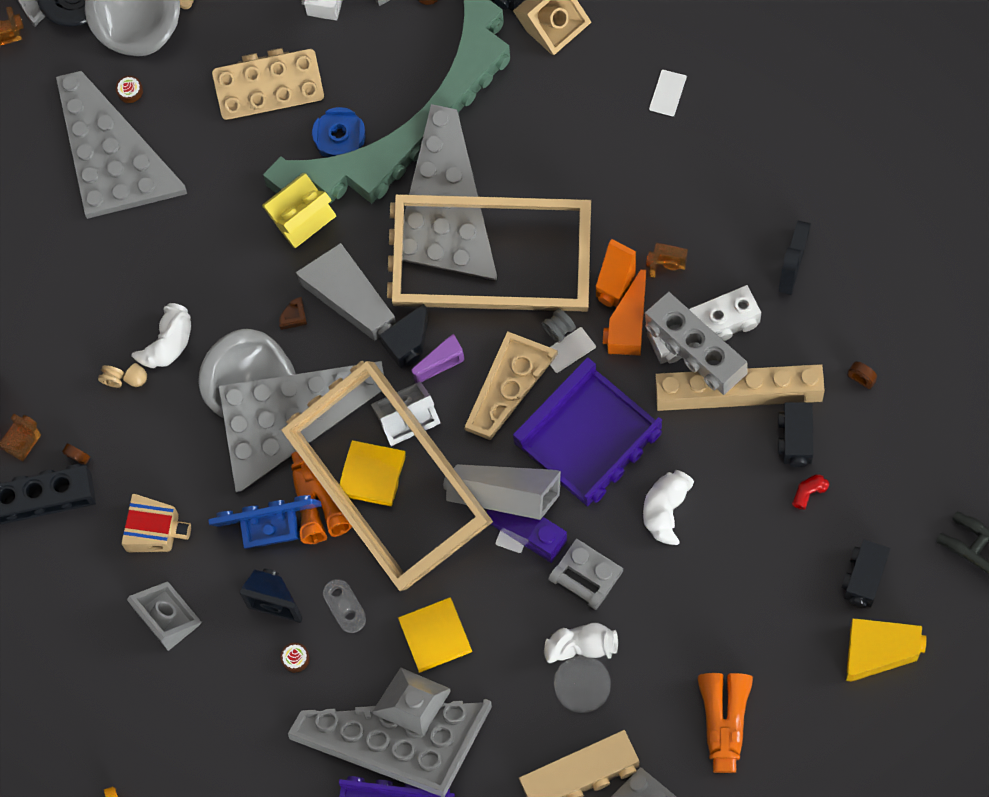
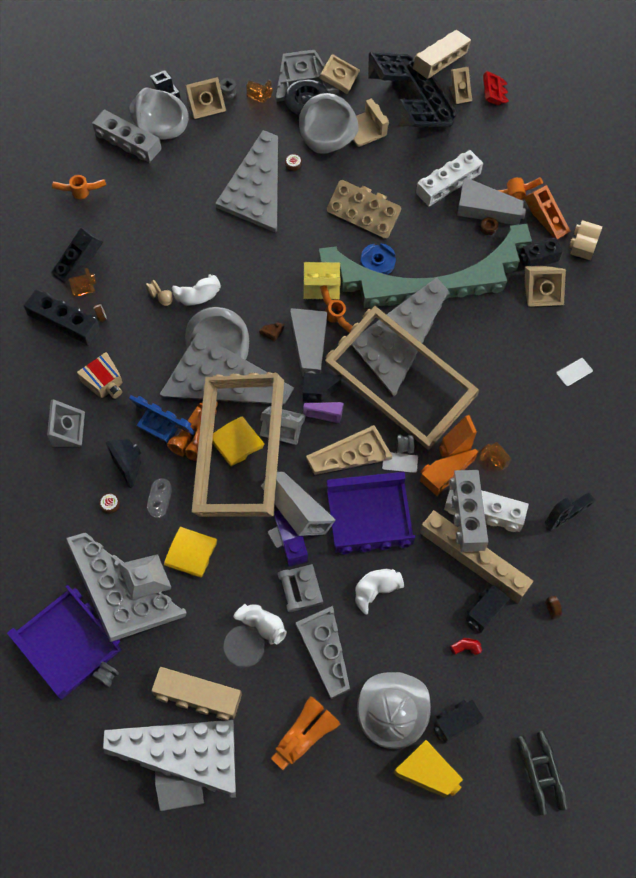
camera: 30 degrees right, 5 degrees down
(350, 226) = (336, 304): none -> orange piece
(664, 613) = (324, 647): none -> light grey wing
(793, 616) = (393, 709): none -> light grey piece

